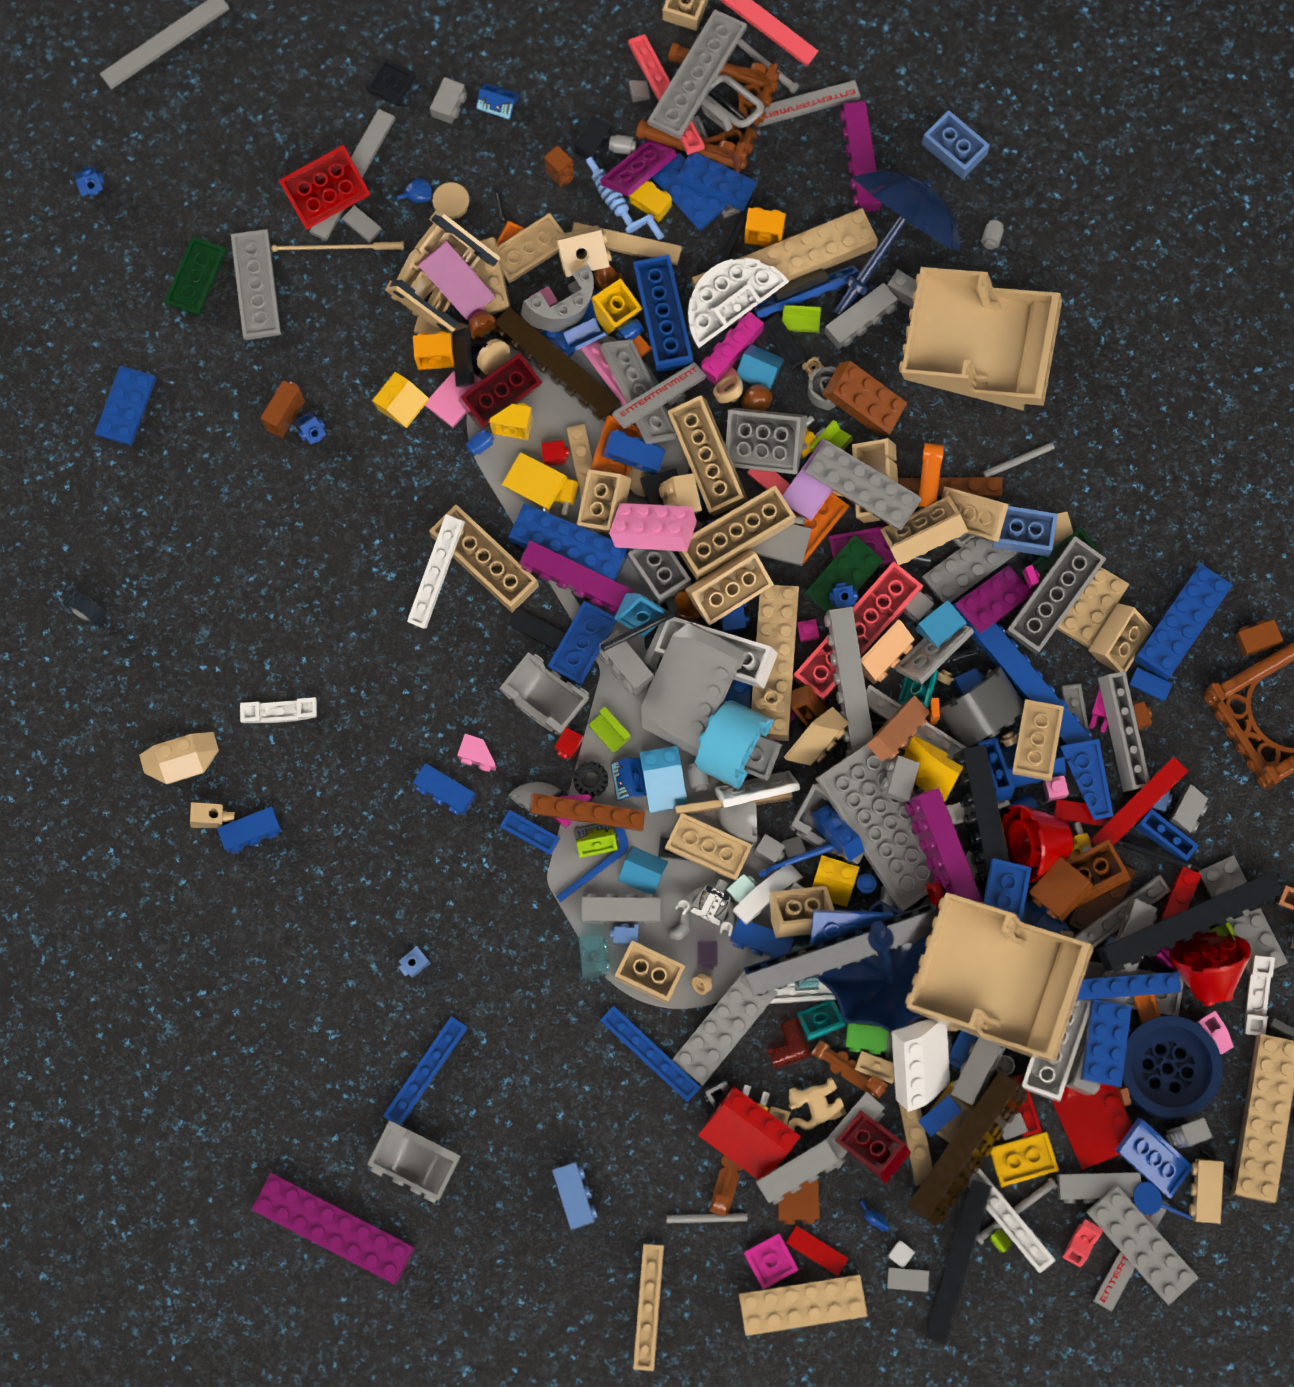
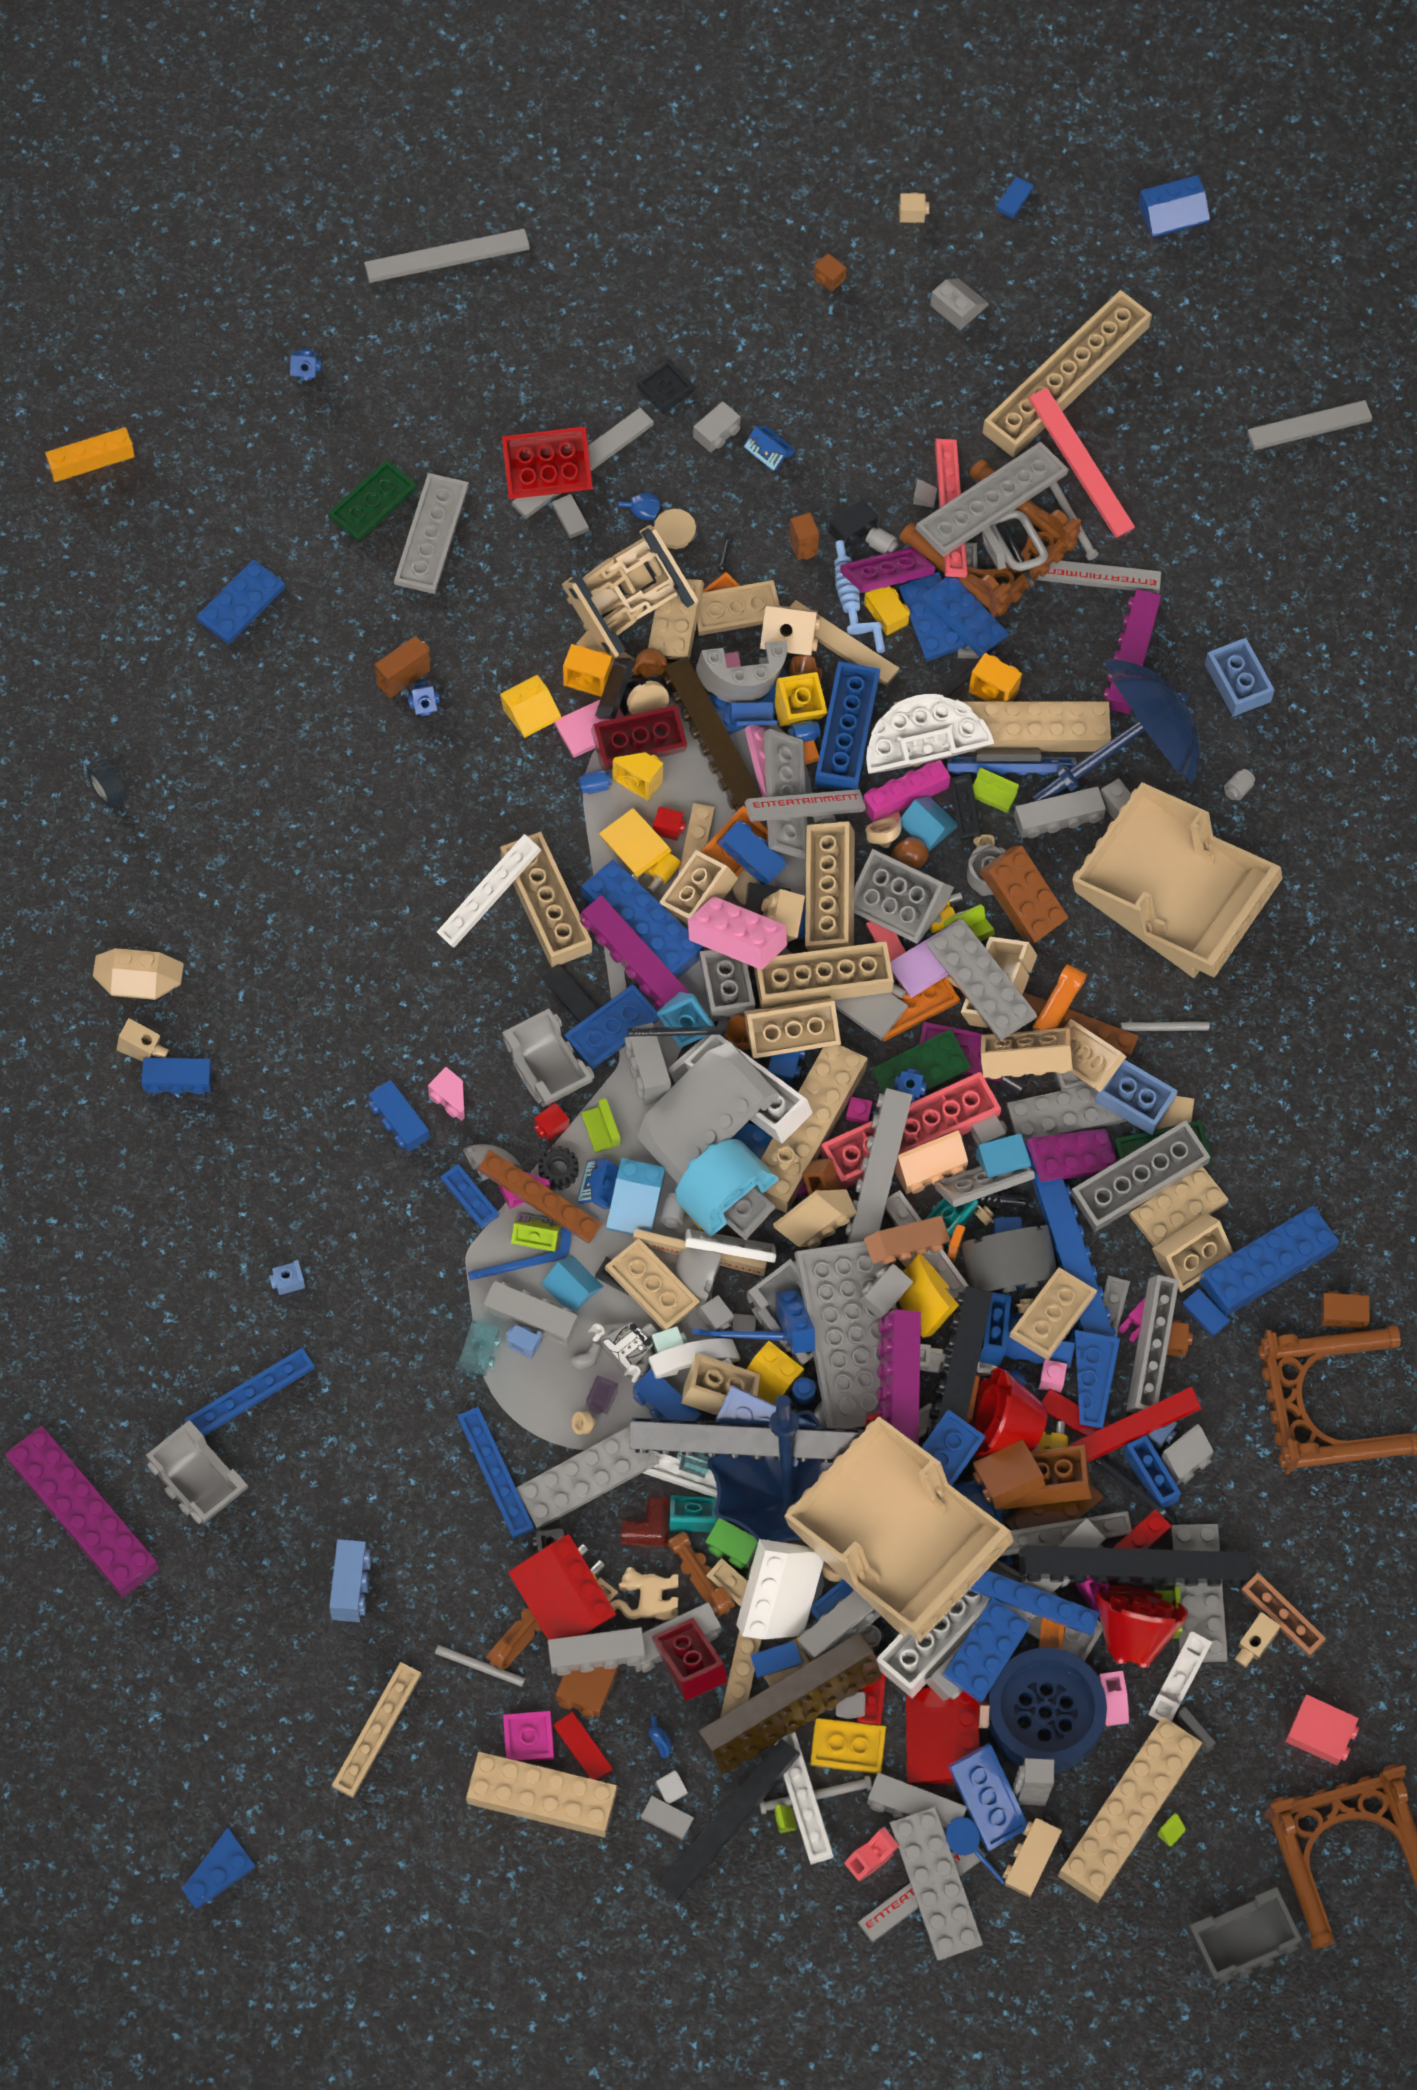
camera: 15 degrees right, 10 degrees down
(278, 711) = (259, 969): white slope -> none
(376, 246) = (574, 543): tan piece -> none
(456, 280) = (642, 606): tile -> none
(649, 972) = (531, 1387): tan slope -> none
(1031, 576) = (1123, 1146): dark pink plate -> none

